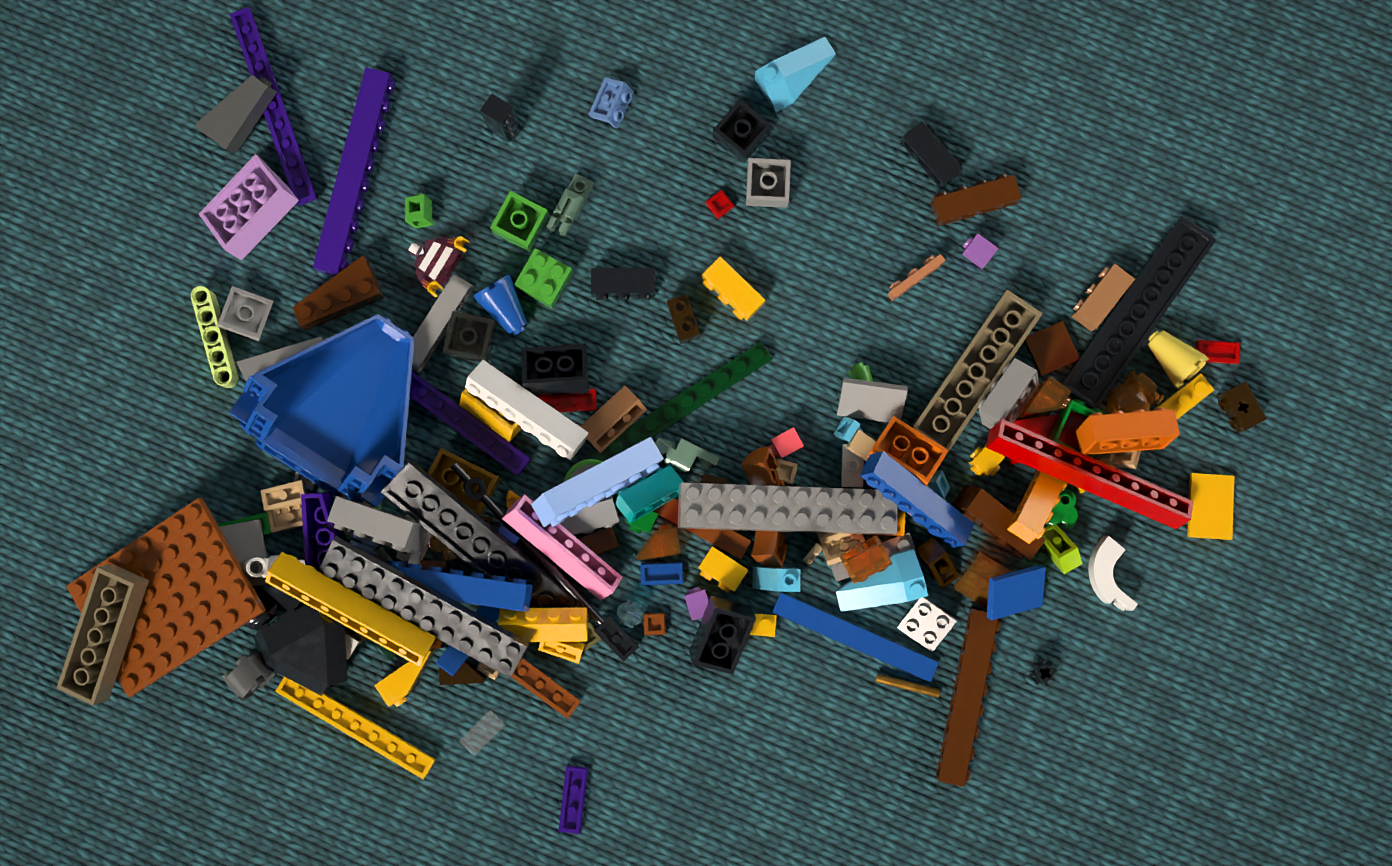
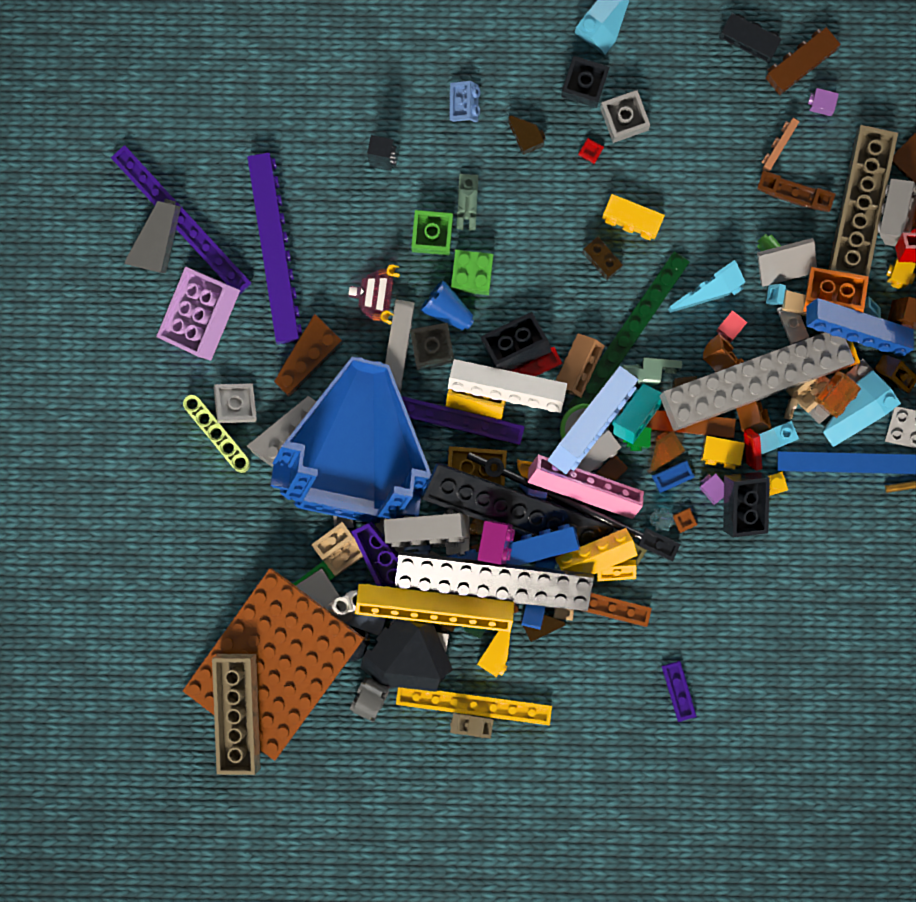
camera: 20 degrees left, 0 degrees up
(342, 746) = (471, 725): none -> dark tan brick
(418, 211) = (342, 265): bright green brick -> none
(437, 568) = (495, 542): none -> magenta brick
(482, 732) = (580, 668): clear tile -> none
(623, 283) = (539, 249): black brick -> none
(660, 161) = (526, 134): none -> dark brown slope
(753, 580) = (753, 449): none -> red tile
(786, 471) = (741, 349): tan tile -> none
(794, 396) = (722, 284): none -> medium azure wedge
(911, 333) = (795, 193): none -> reddish brown slope

